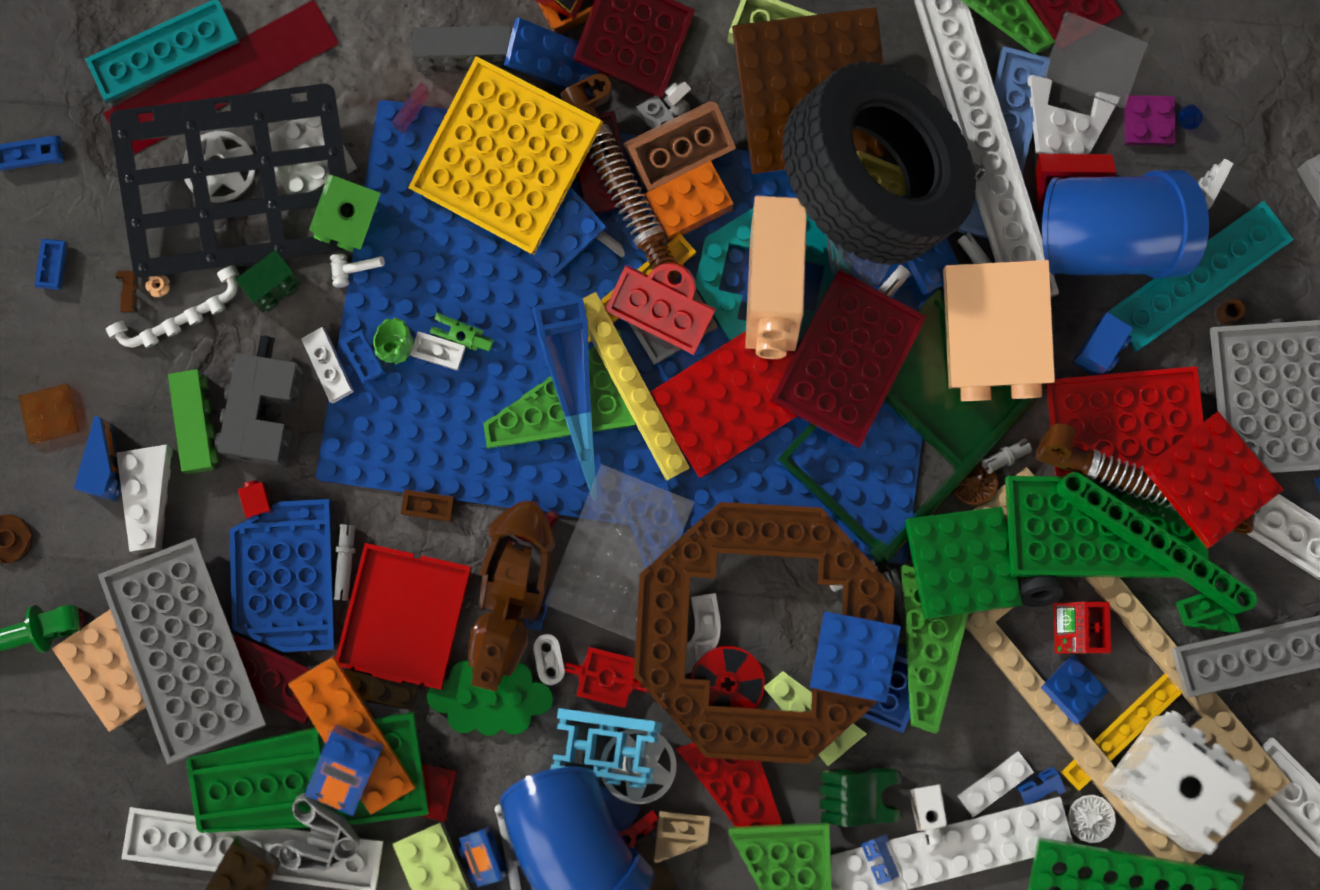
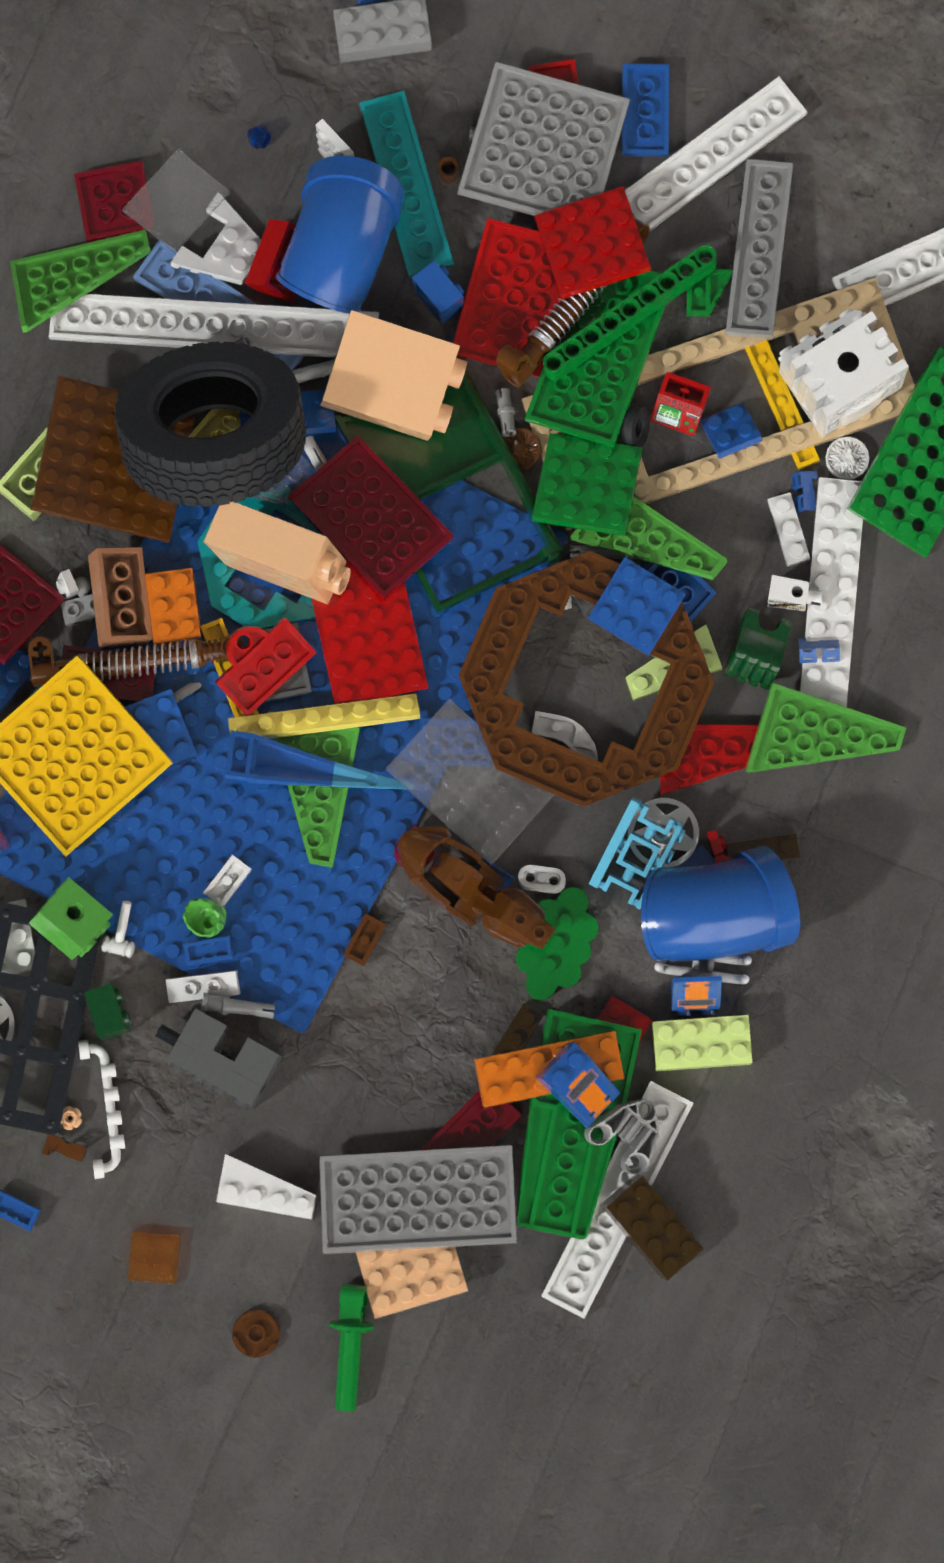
camera: 65 degrees left, 0 degrees up
(99, 465) = (227, 1222): blue slope -> none
(192, 421) = (209, 1126): bright green brick -> none
(255, 498) = (303, 1092): red brick -> none
(285, 577) = (382, 1090): blue plate -> none
(313, 392) = (225, 1005): none -> light grey pin
(344, 562) = (389, 1032): light grey pin -> none
(403, 616) = (456, 995): red piece -> none
(474, 336) = (228, 845): bright green hinge -> none
(606, 677) = (575, 833): red plate -> none
(680, 834) = (736, 817): tan wing -> none
(738, 667) = (606, 716): red piece -> none
(1149, 120) = (249, 173): magenta plate -> none

